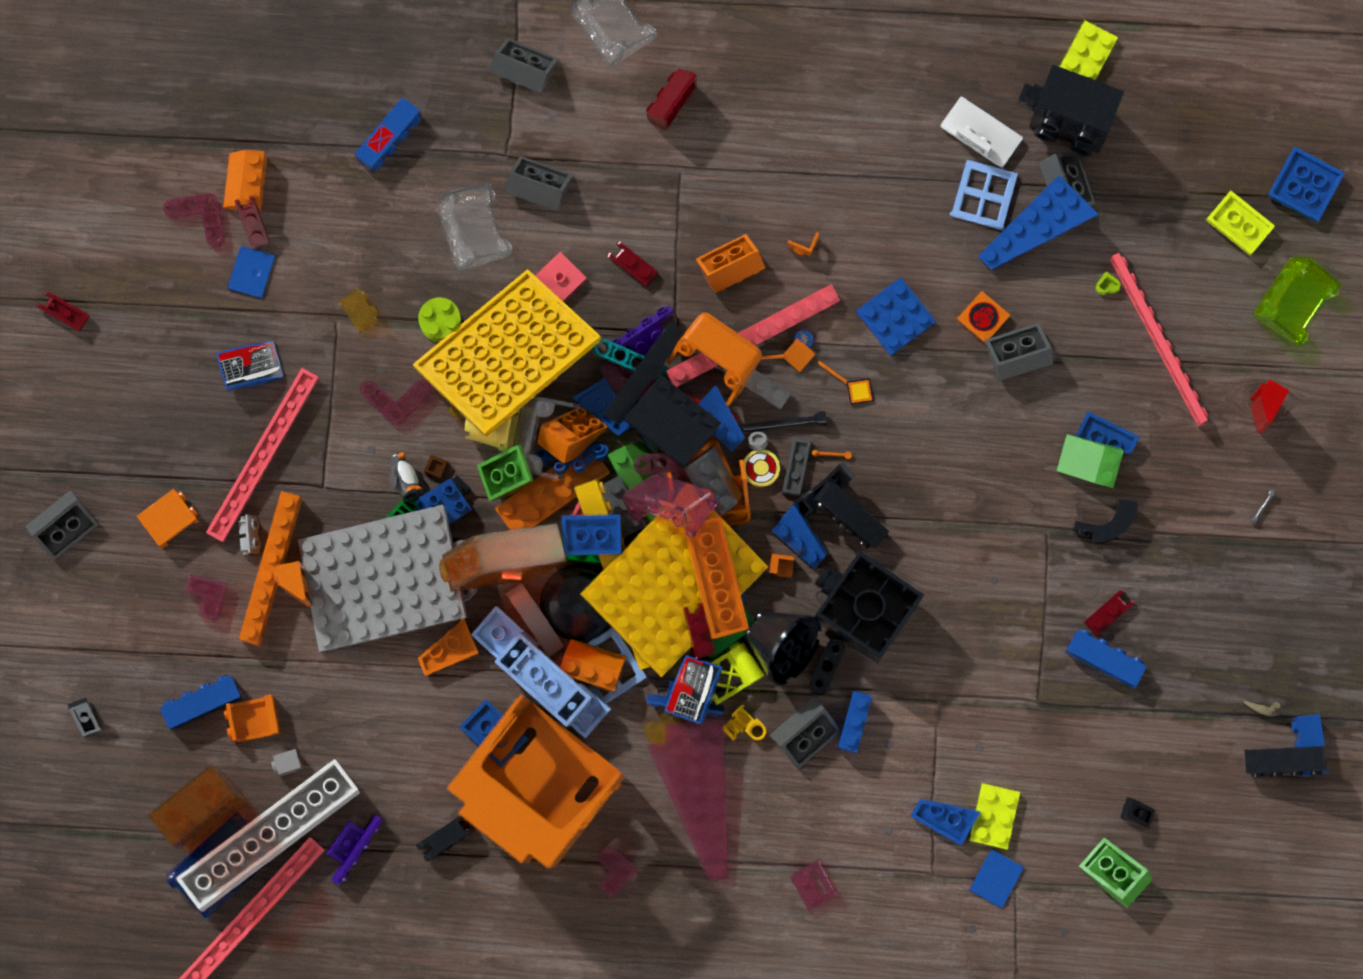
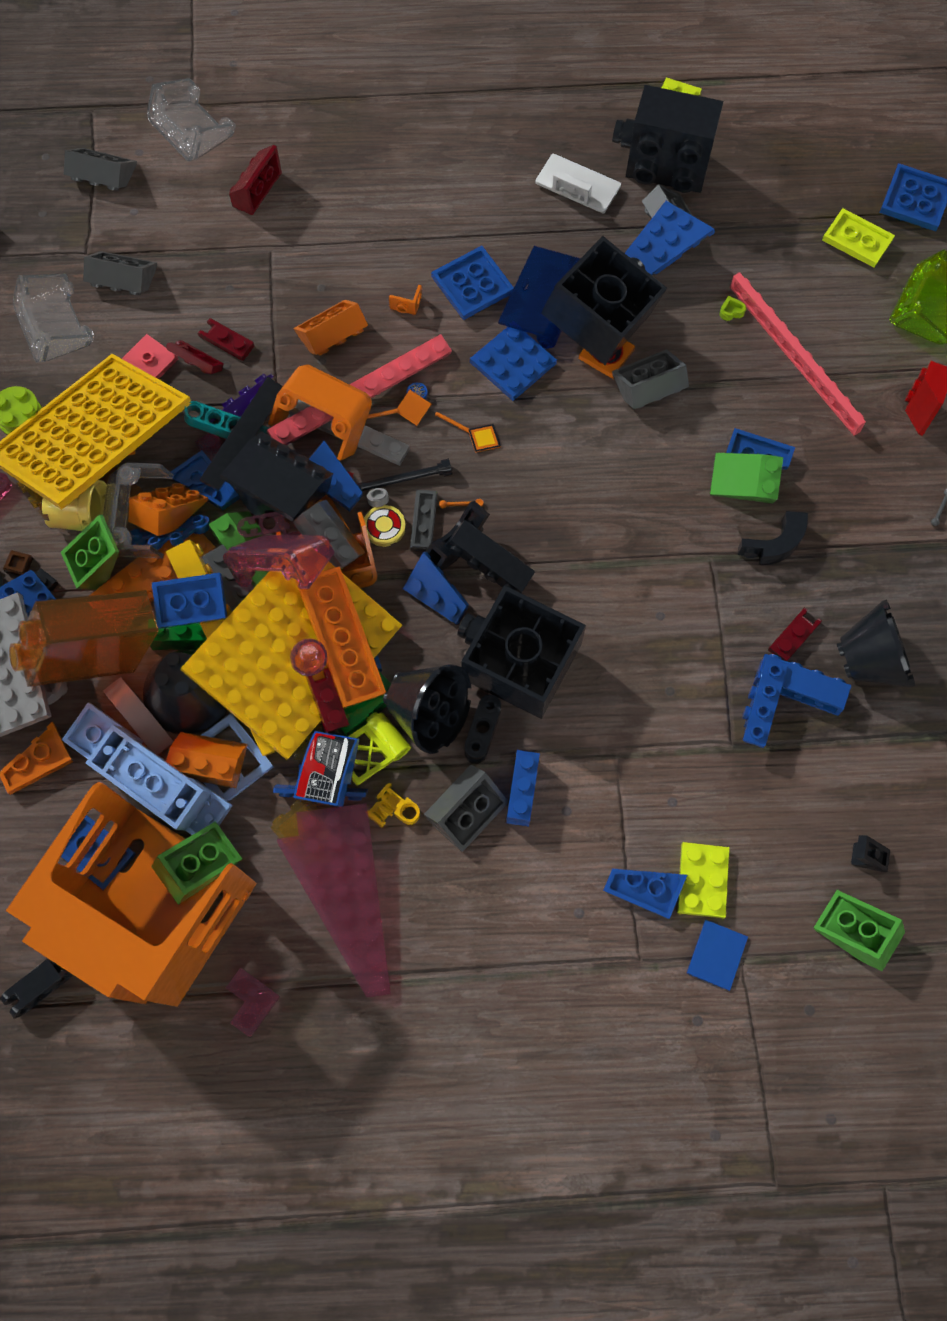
camera: 10 degrees left, 10 degrees down
(579, 754) = (195, 862): none -> bright green slope
(603, 281) = (195, 357): none -> dark red hinge
(687, 595) = (308, 657): none -> piece
(781, 566) = (418, 624): orange panel -> none
(808, 888) = (490, 993): clear pink plate -> none
(867, 231) = (472, 282): none -> blue plate
(933, 262) = (524, 307): none -> clear blue door
(984, 194) = (588, 240): light blue window -> none
(985, 278) = (603, 299): none -> black brick
(1069, 673) = (763, 703): none -> blue bracket
(1175, 638) = (876, 650): none -> black cone

